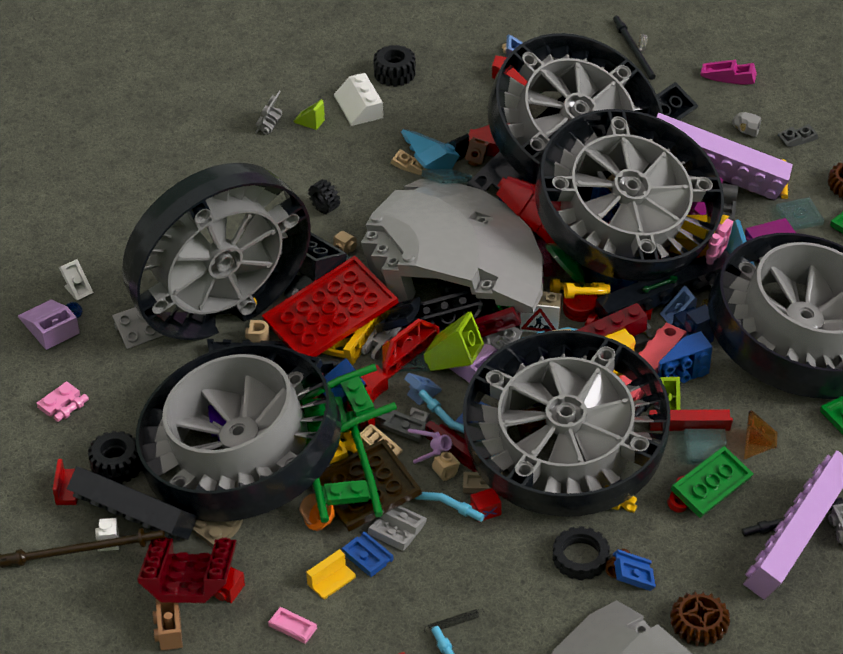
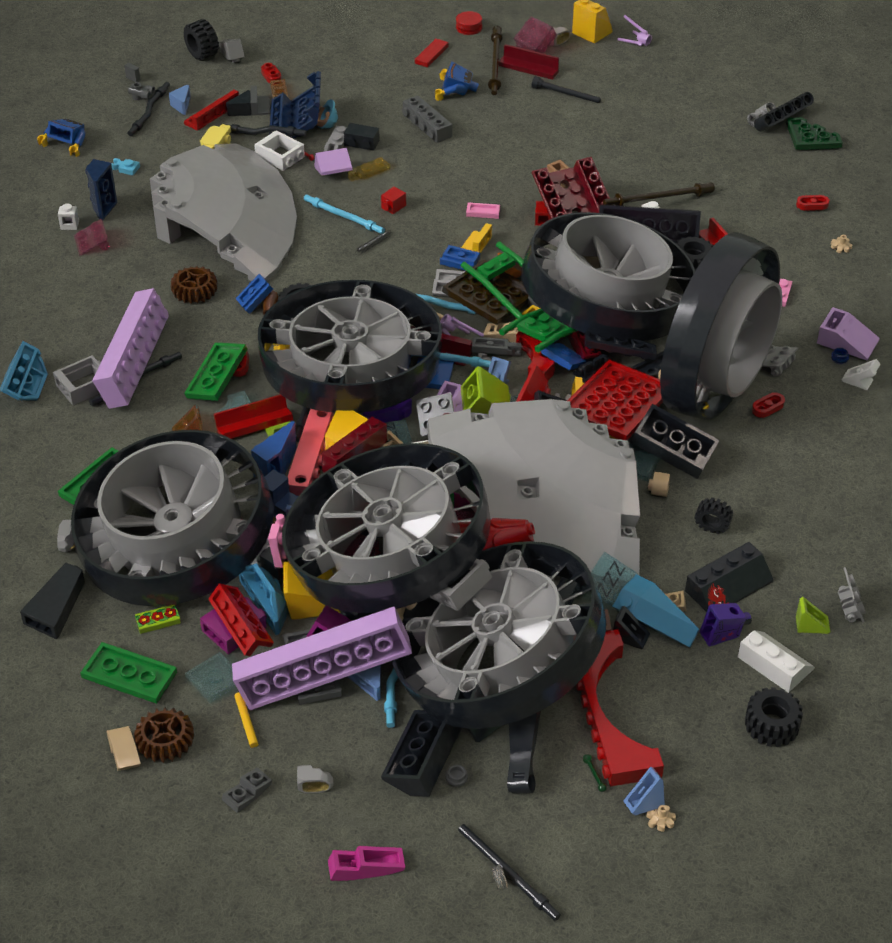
camera: 155 degrees right, 0 degrees up
(349, 161) = (729, 577): none -> black slope
(380, 124) = (723, 623): none -> dark purple torso
(771, 216) = (239, 619): none -> red fence

